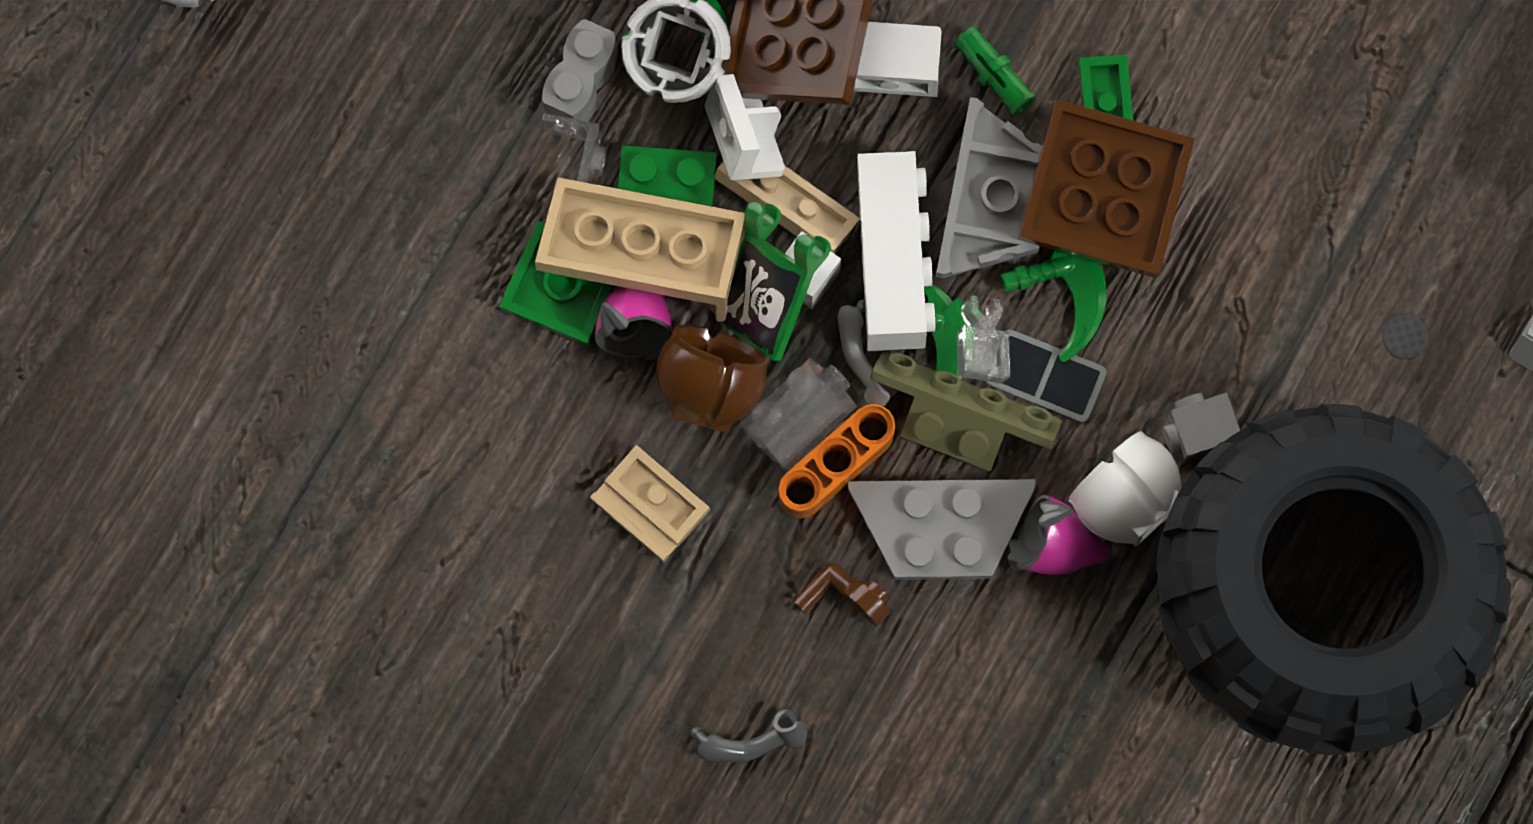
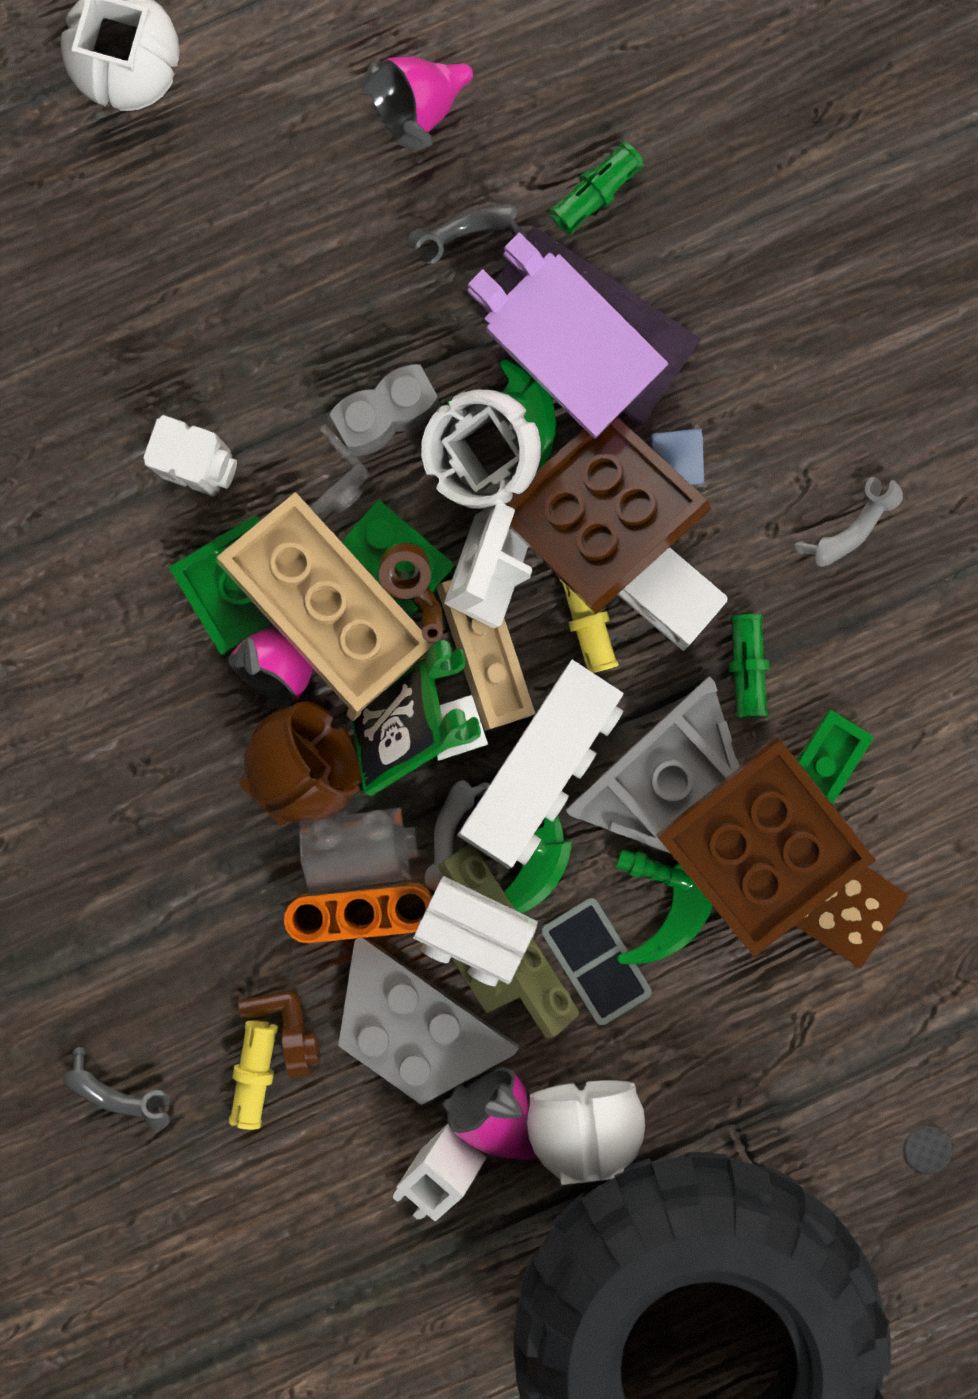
camera: 35 degrees right, 10 degrees up
(459, 208) = (189, 456): none -> white brick
(650, 503) = (176, 832): tan plate -> none
(696, 183) = (412, 585): none -> reddish brown plate
(845, 646) = (253, 1074): none -> light yellow pin
(853, 126) = (591, 633): none -> light yellow pin
(934, 398) = (474, 932): none -> white brick
(980, 347) = (558, 902): clear plate -> none
(1044, 614) = (440, 1174): none -> white brick
(1199, 426) = (693, 1109): light grey brick -> none
(1212, 201) = (855, 916): none -> reddish brown sticker

